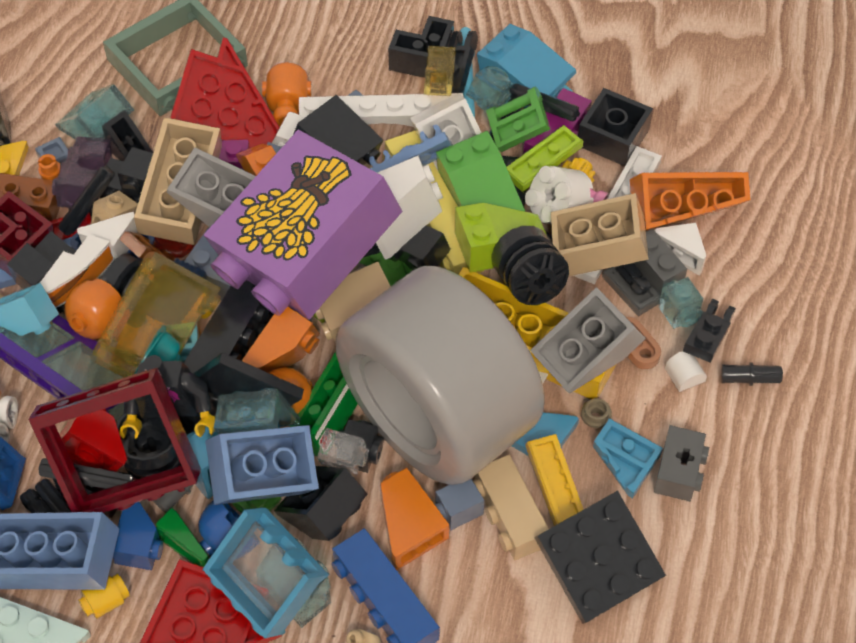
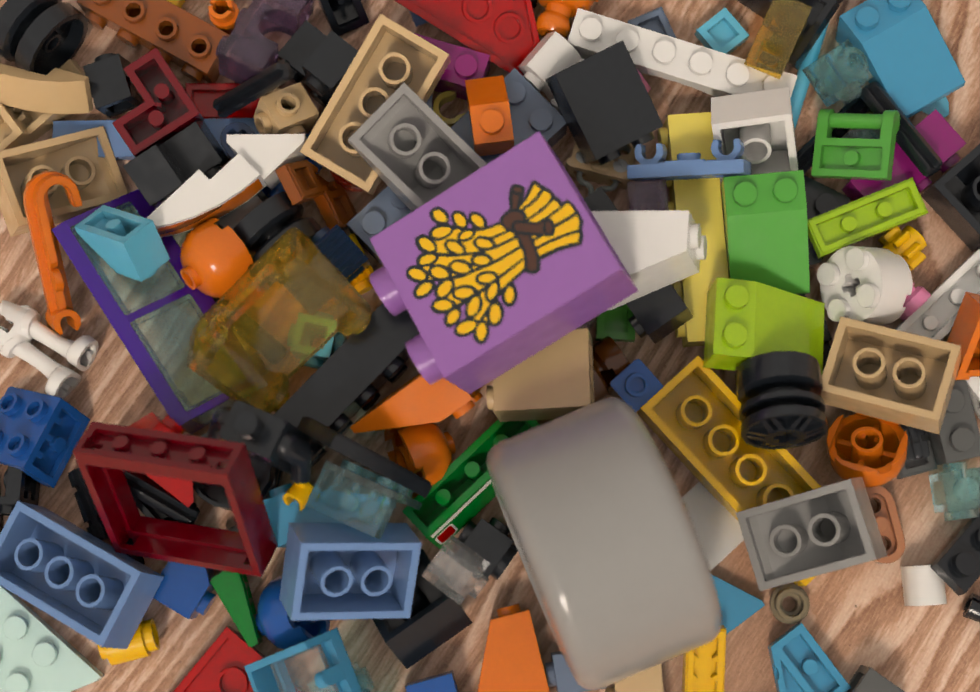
camera: 20 degrees right, 25 degrees up
(164, 346) = (272, 370): teal piece -> none
(403, 87) = (722, 32): none -> medium azure plate
(613, 283) = (867, 448): none -> orange cylinder

